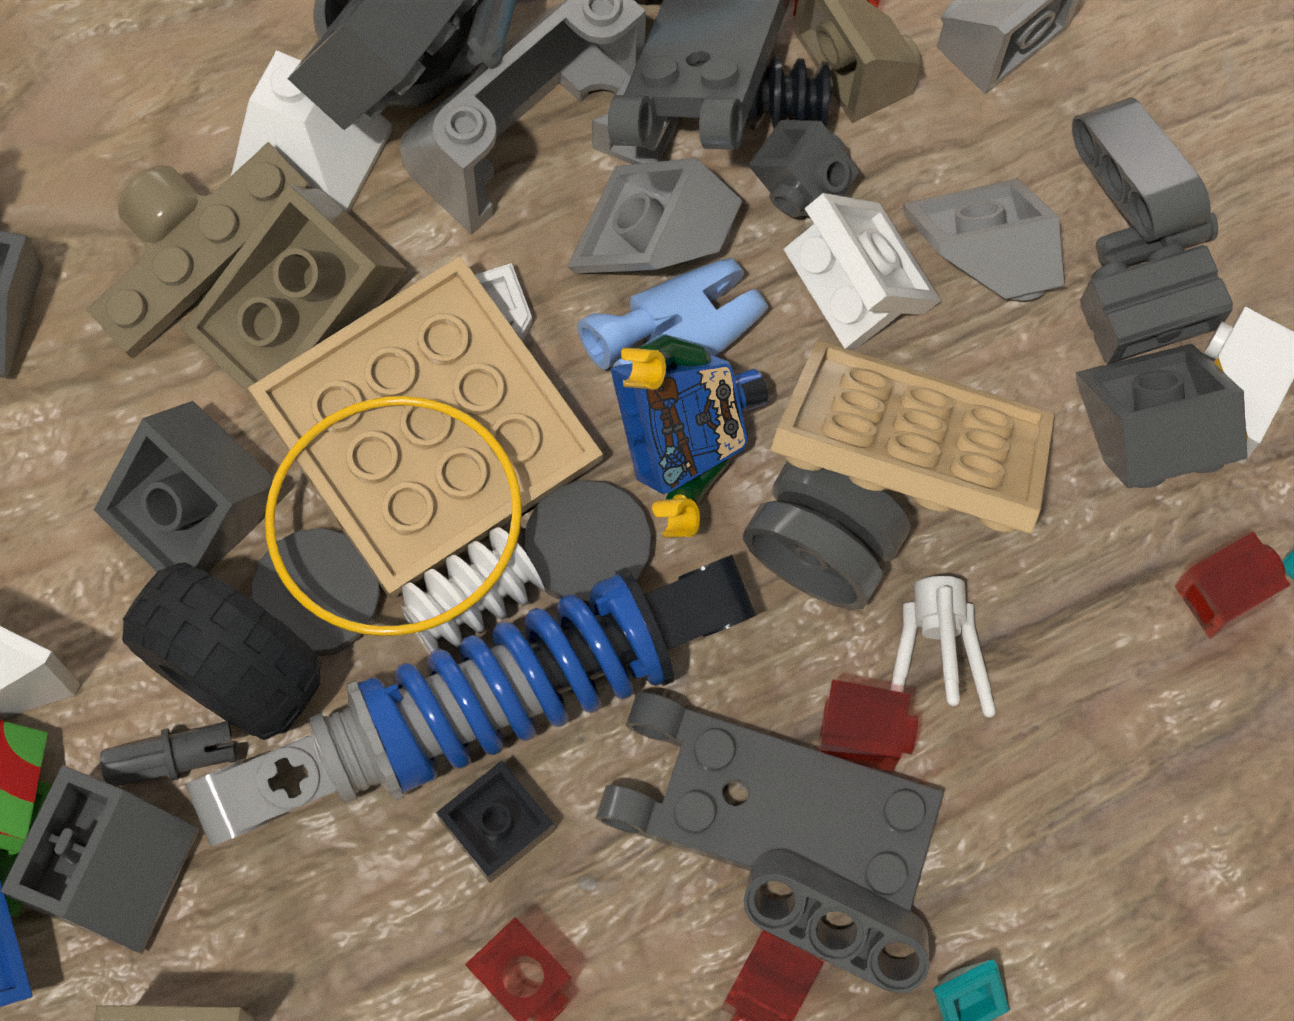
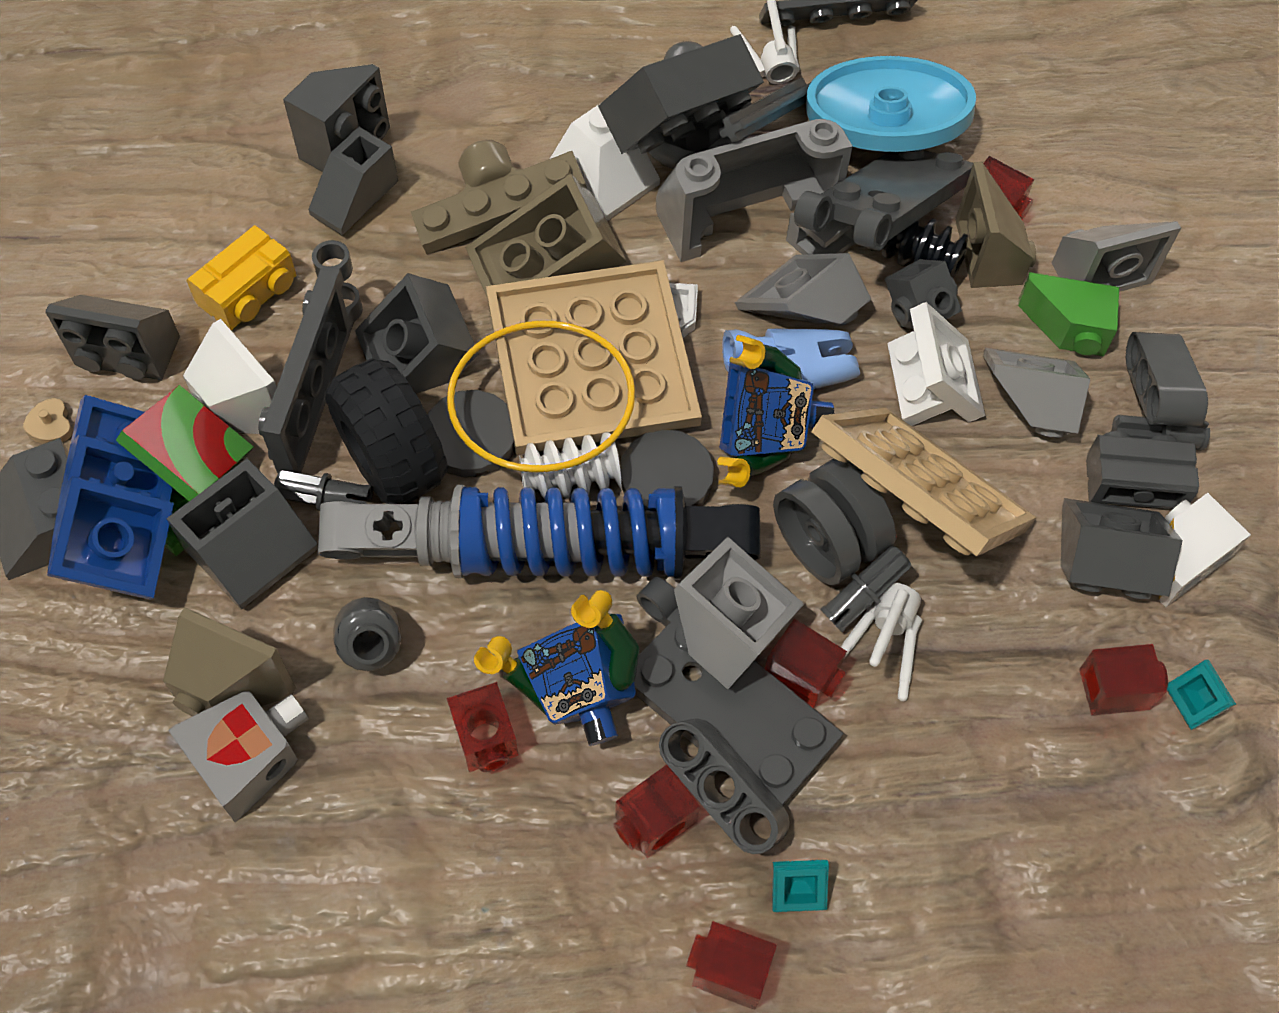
camera: 25 degrees right, 10 degrees down
(61, 518) = (312, 361): none -> dark grey hinge
(323, 922) = (366, 634): none -> dark grey head
(495, 821) = (516, 615): black piece -> none
(600, 862) = (574, 670): none -> torso
(762, 706) = (731, 611): none -> light grey slope
(896, 598) = (866, 587): none -> dark grey axle
(994, 115) = (1072, 312): none -> bright green slope

